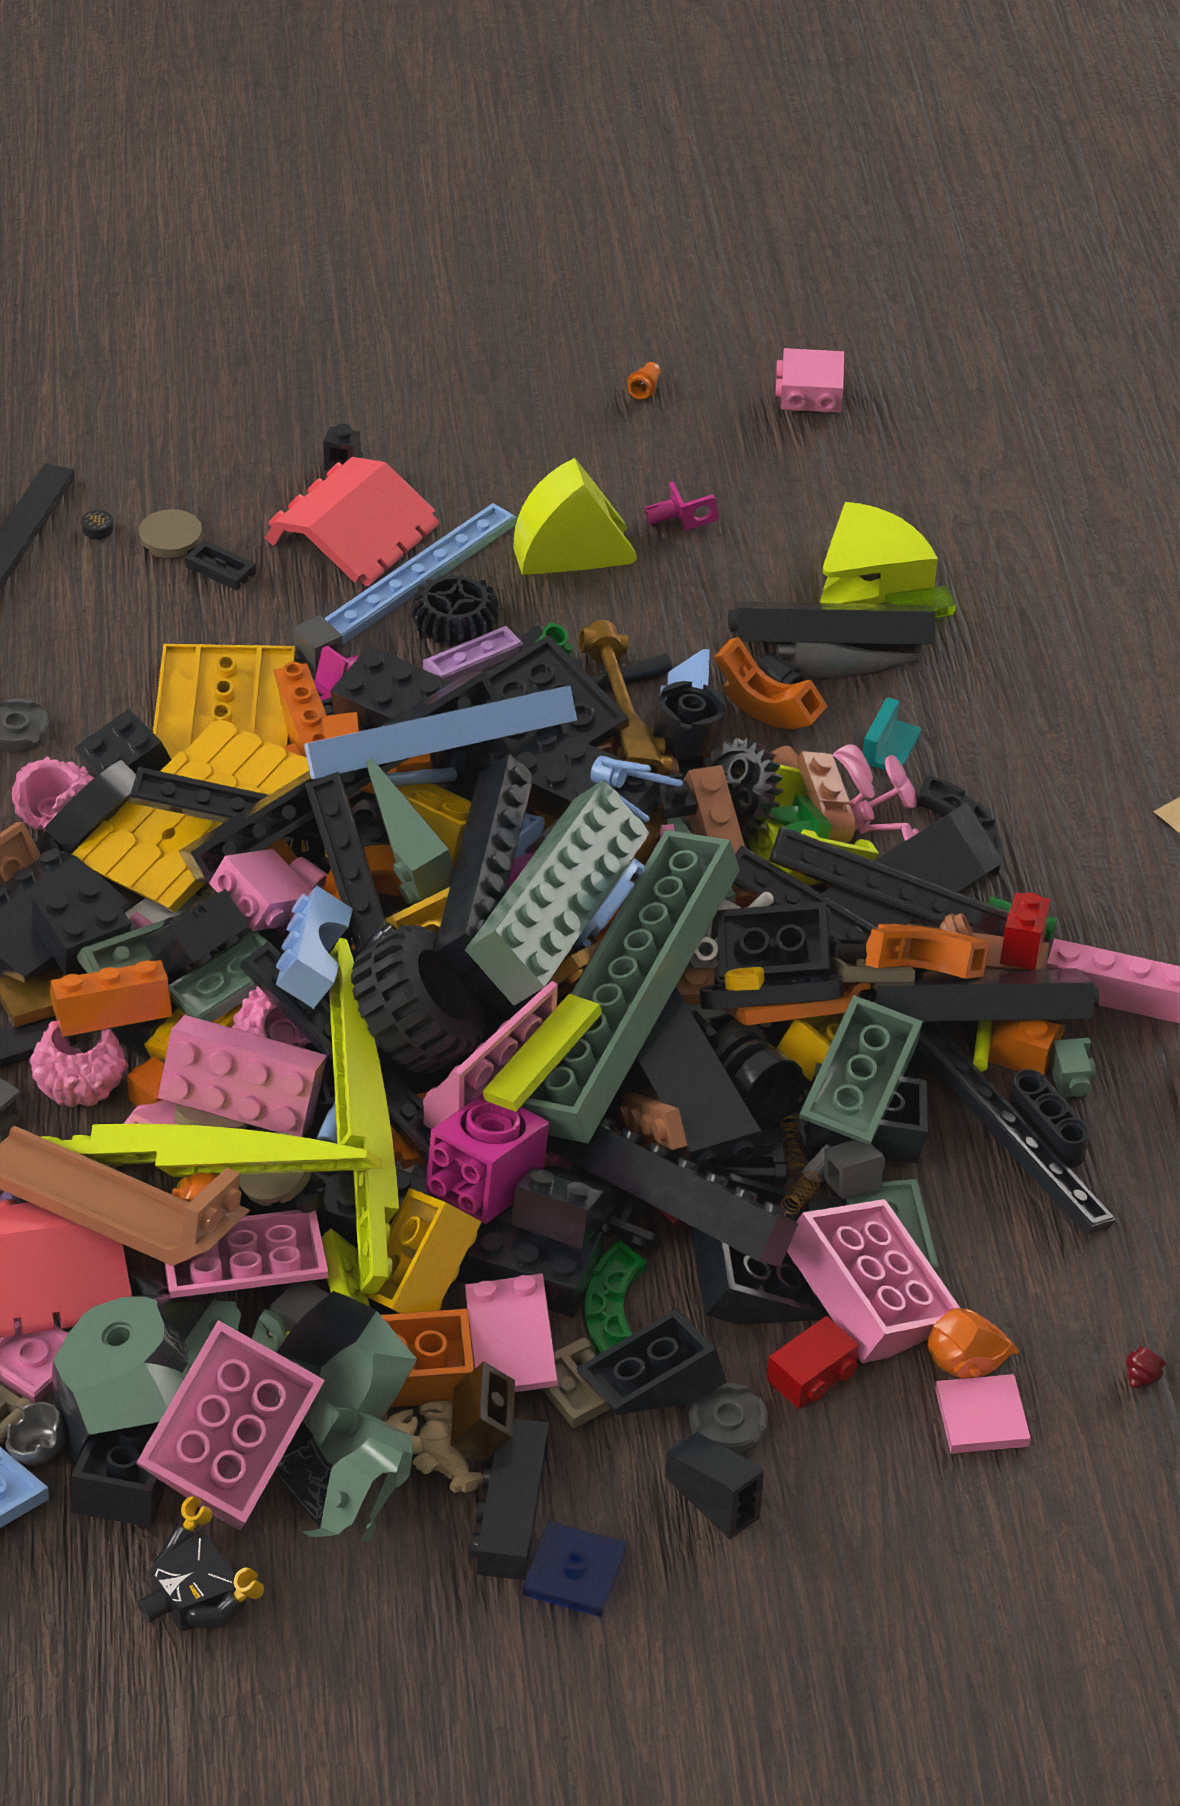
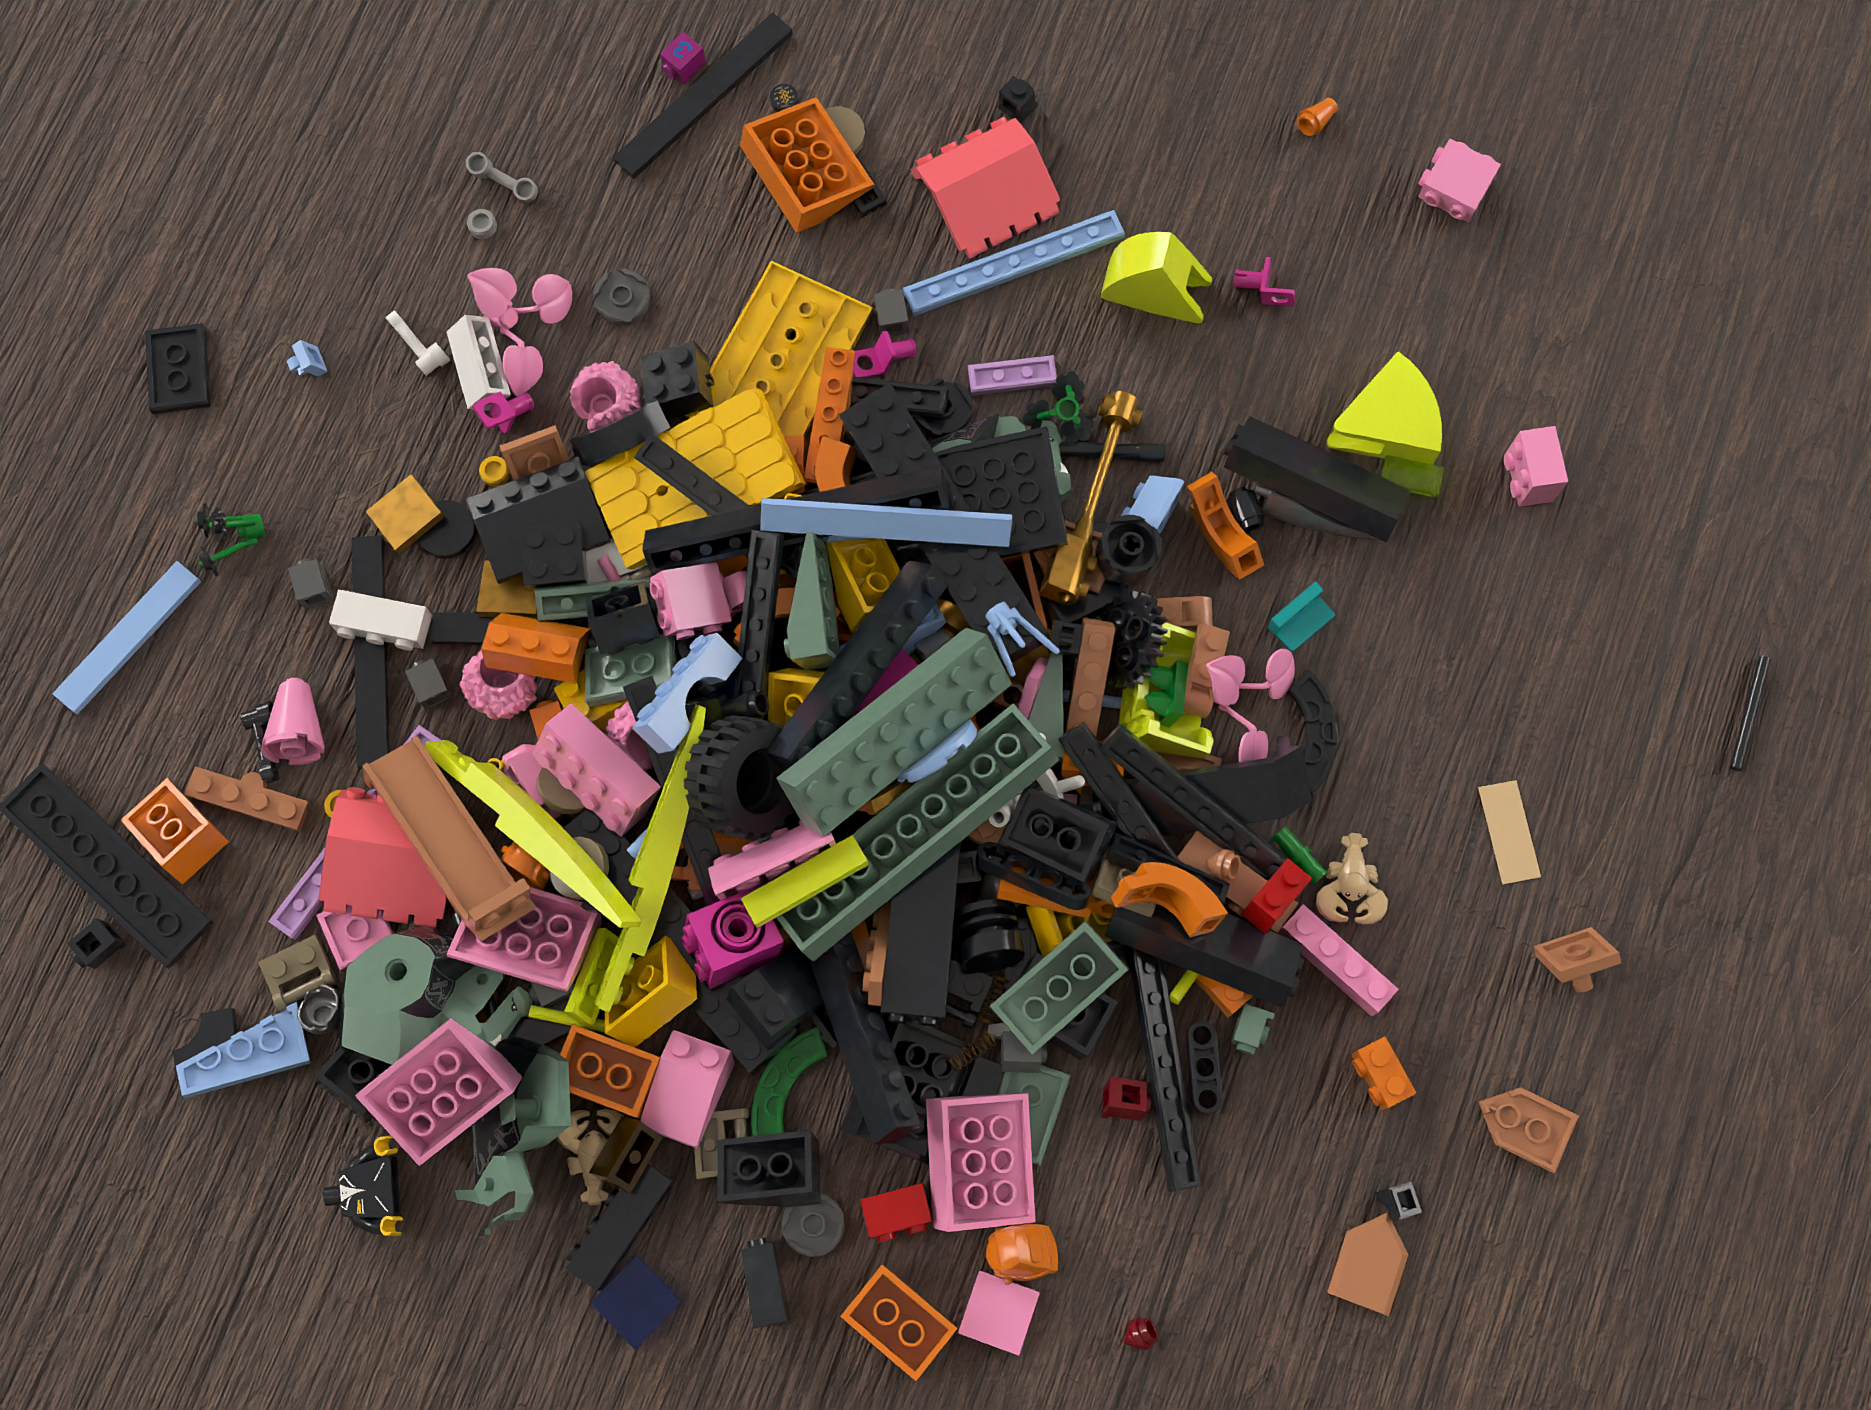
camera: 30 degrees right, 30 degrees up
(152, 559) = (804, 163): none -> orange slope
(455, 608) = (1035, 335): black gear -> none
(744, 979) = (1014, 860): yellow tile -> none
(883, 1451) = (899, 1322): none -> orange brick
(986, 1172) = (1129, 1090): none -> dark red brick
(1033, 548) = (1536, 466): none -> bright pink brick
(1091, 917) = (1353, 883): none -> tan animal

